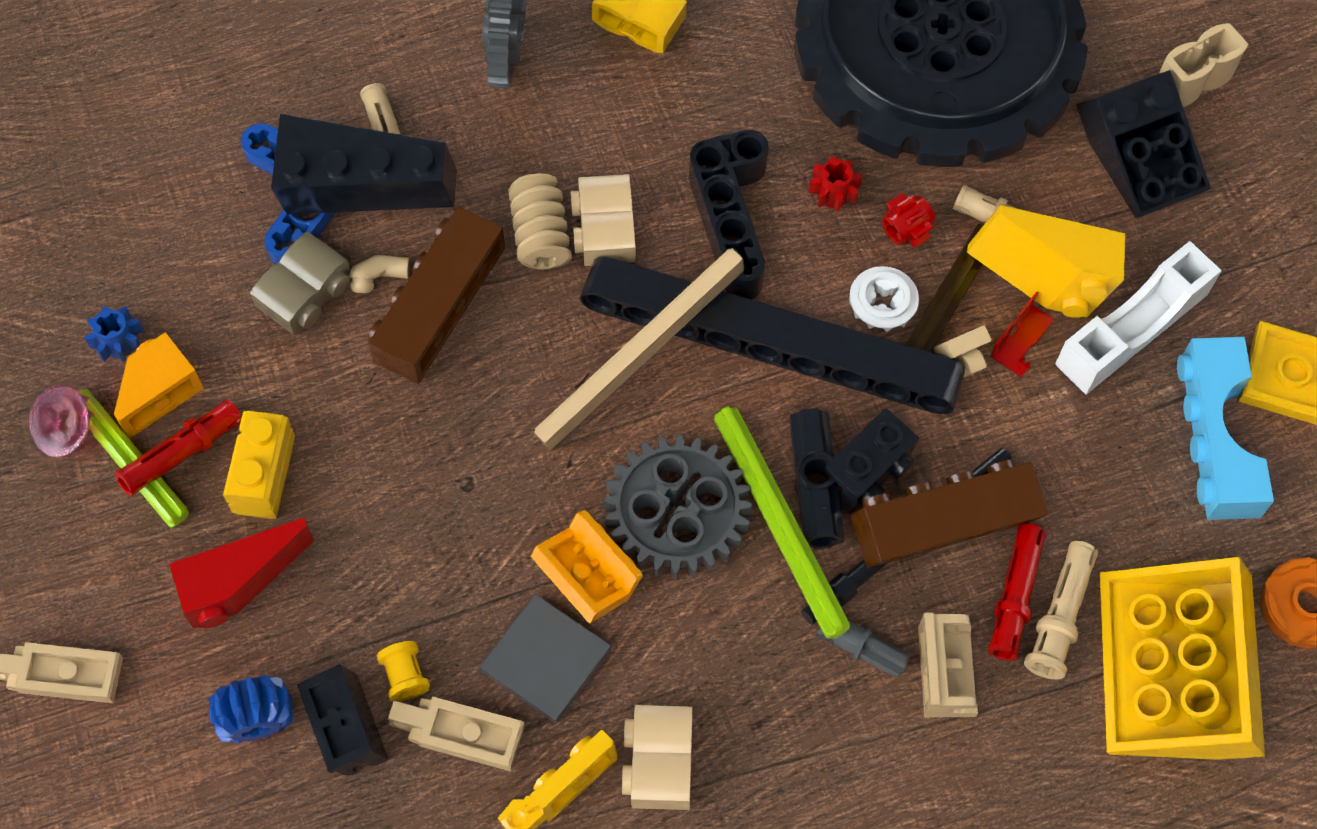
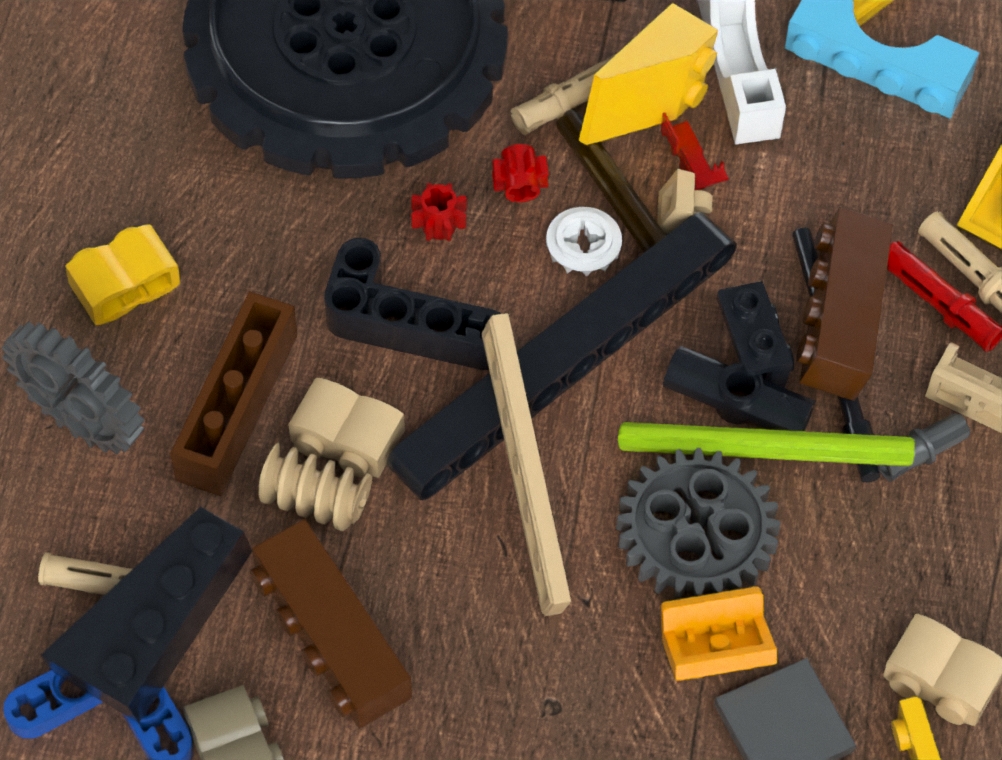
camera: 60 degrees left, 5 degrees down
(375, 267) = (256, 669): tan arm -> none
(582, 129) = (234, 394): none -> reddish brown brick

